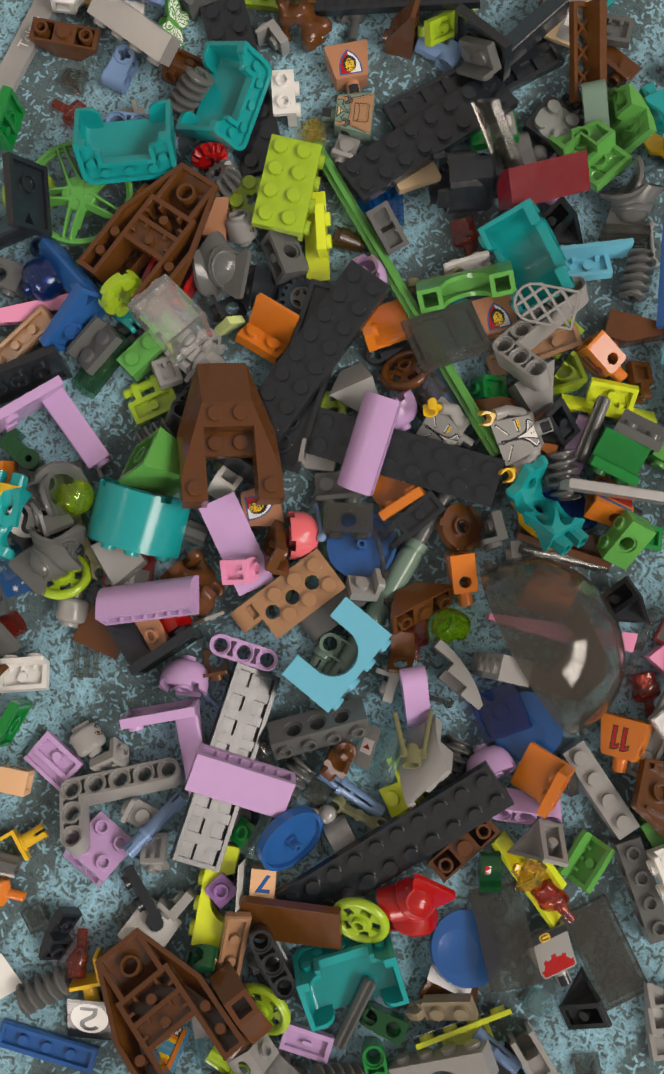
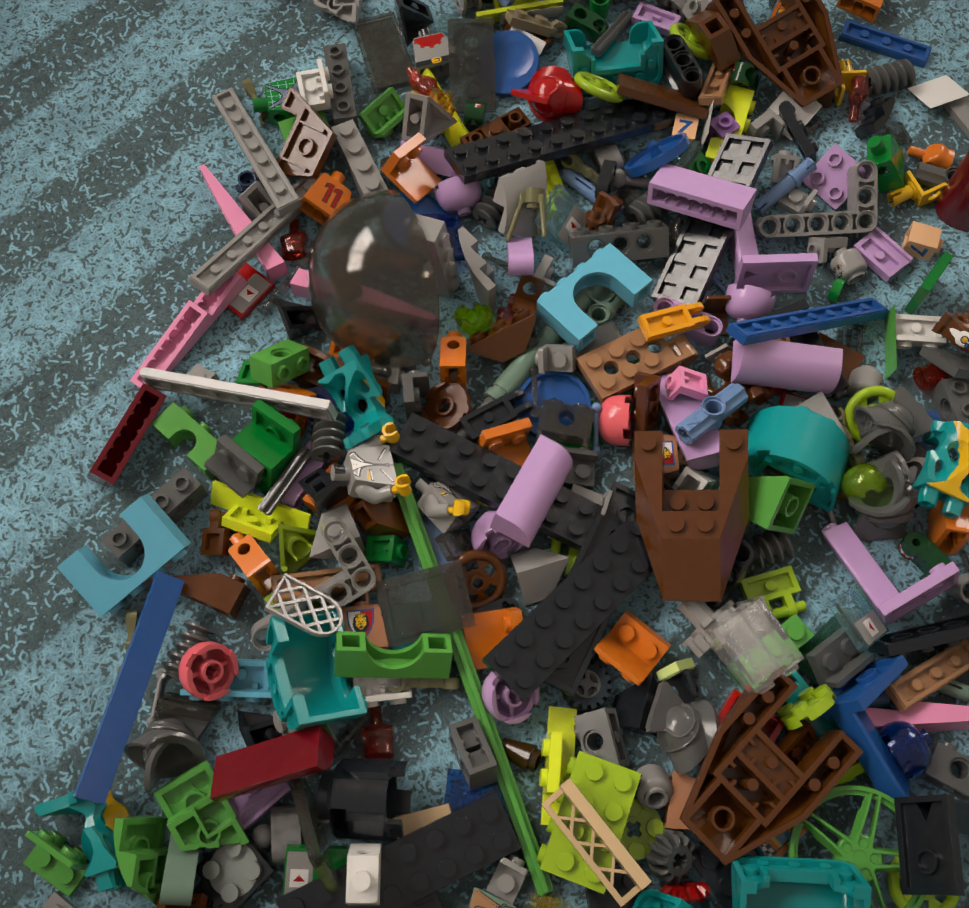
camera: 175 degrees left, 15 degrees down
(47, 659) = (890, 343): none -> bright green sticker
(49, 870) = (887, 153): none -> green torso
(80, 379) = (858, 617): none -> clear light blue tile
(87, 1019) = (852, 55): sticker -> none
(99, 710) = (836, 290): none -> green tile
(128, 649) = (806, 321): none -> blue tile
(203, 551) = (711, 413): none -> medium blue piece
(259, 636) = (672, 321): none -> light orange hinge
(279, 167) = (605, 835): none -> tan fence
(340, 800) = (606, 177): none -> black beam
(454, 109) = (363, 874): none -> white torso
(616, 252) = (208, 670): none -> coral cylinder

